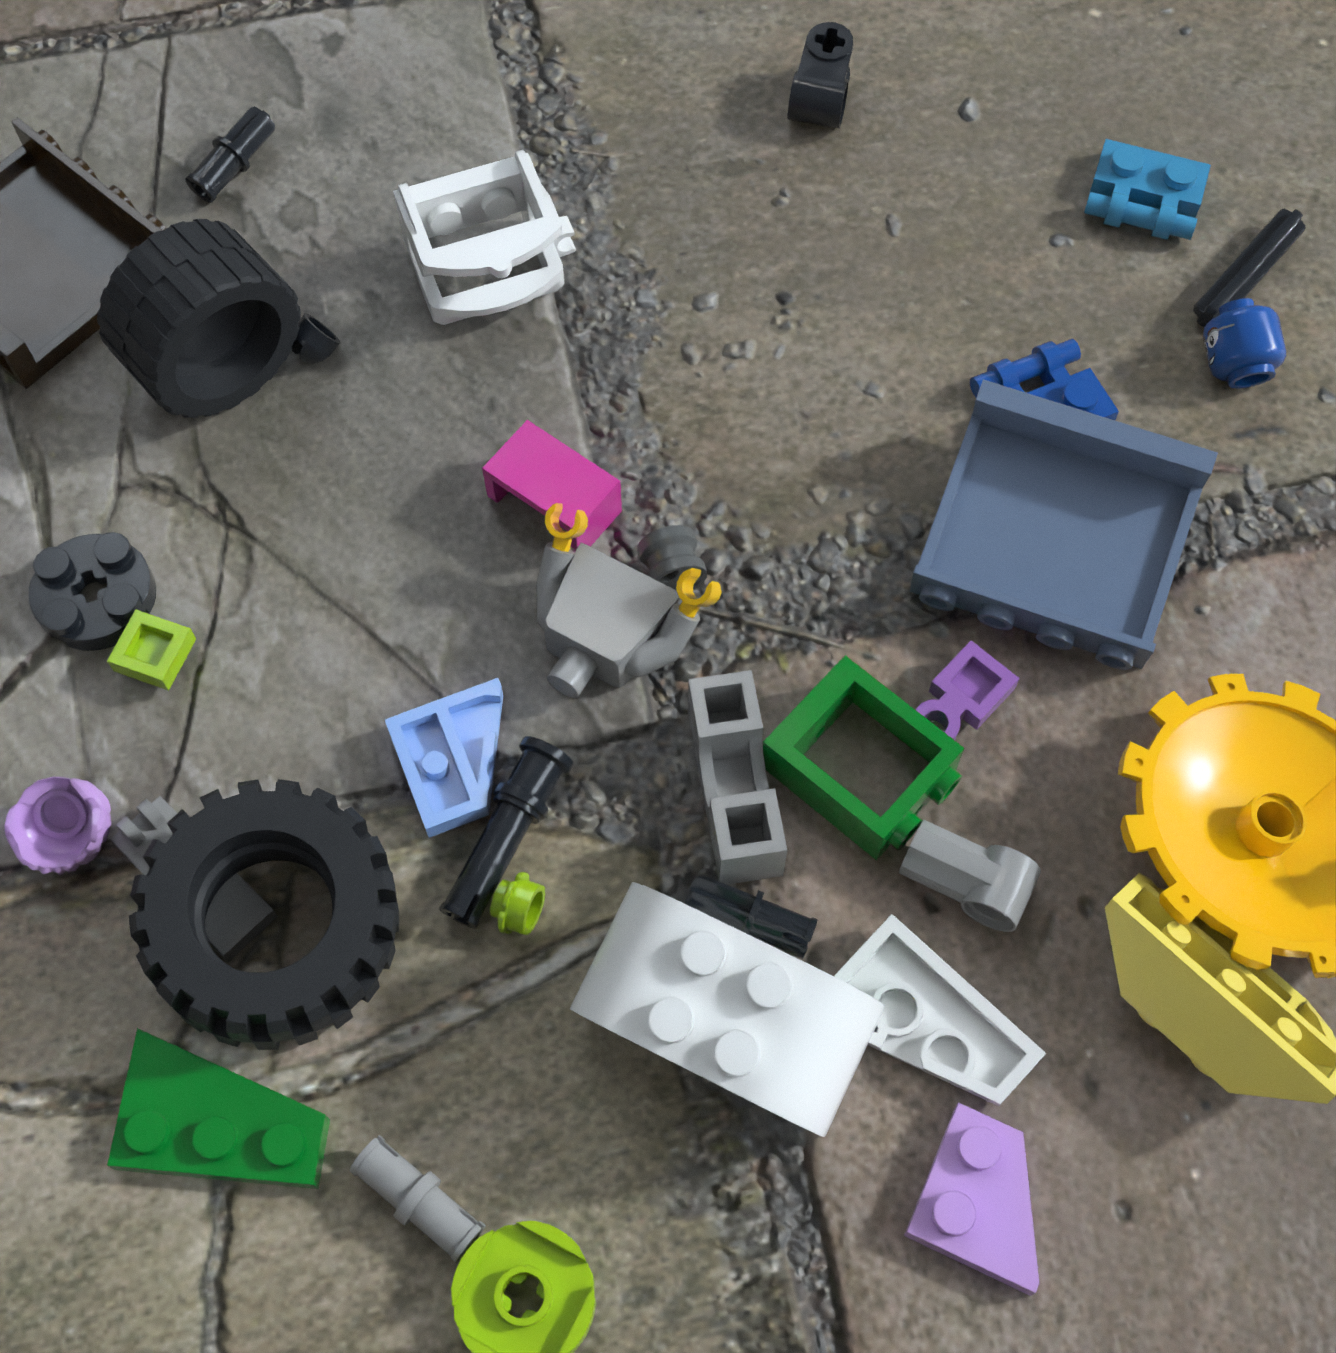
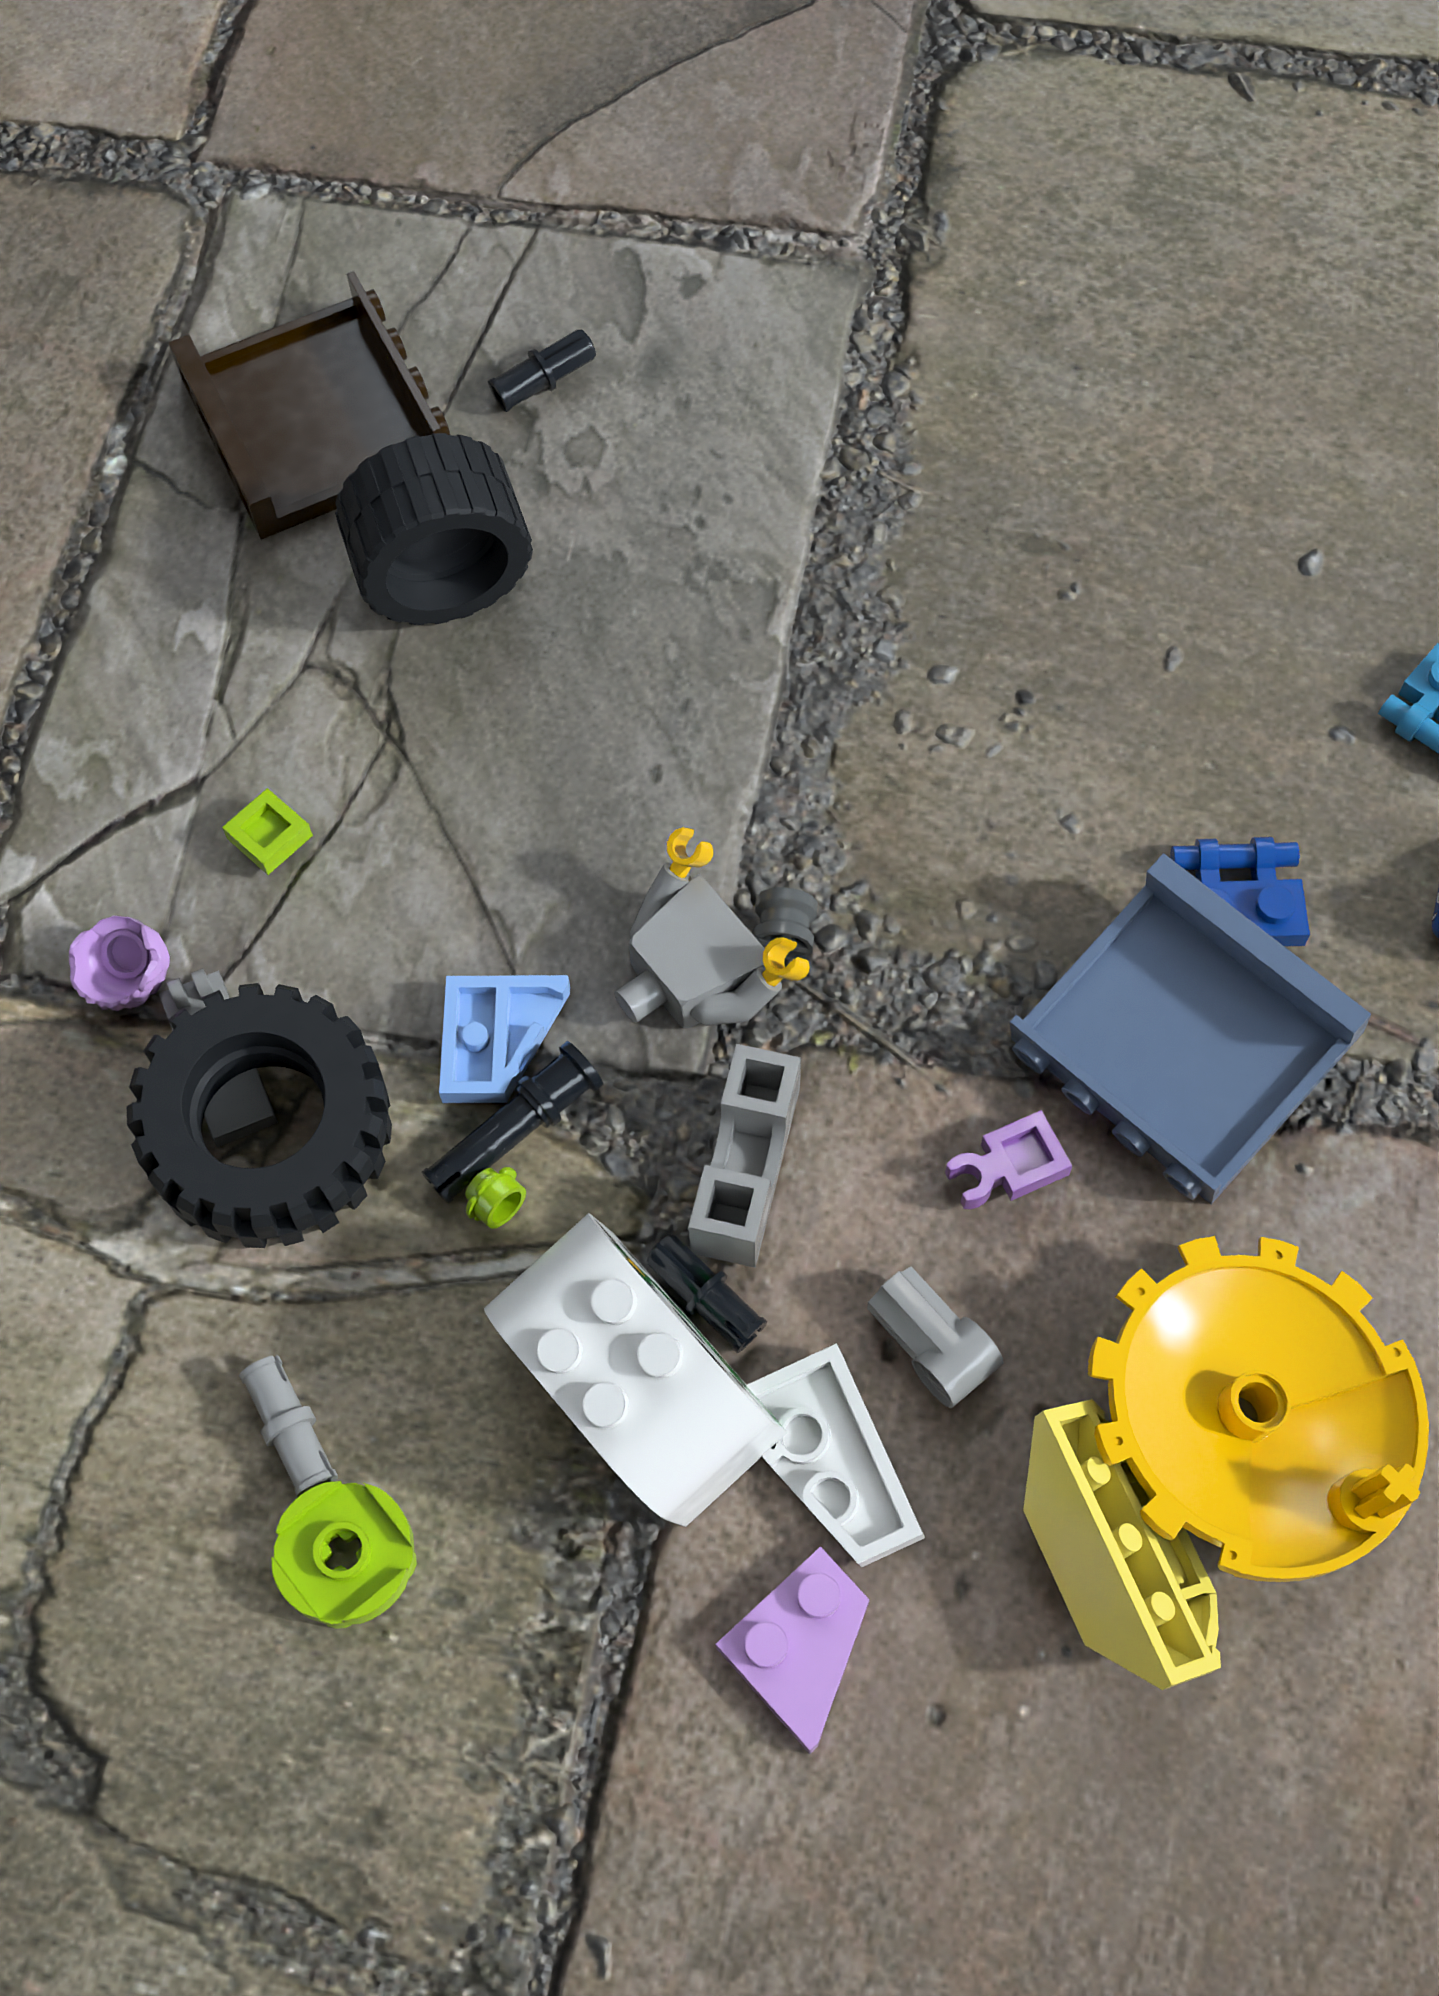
camera: 25 degrees right, 0 degrees up
(71, 566) = (234, 725): black plate -> none
(211, 1123) = (141, 1285): green wing -> none
(314, 340) = (542, 583): black hinge -> none
(475, 198) = (746, 494): white animal -> none
(549, 472) = (703, 797): dark pink panel -> none
(811, 719) = (853, 1127): green window -> none
(823, 76) = (1163, 480): black piece -> none

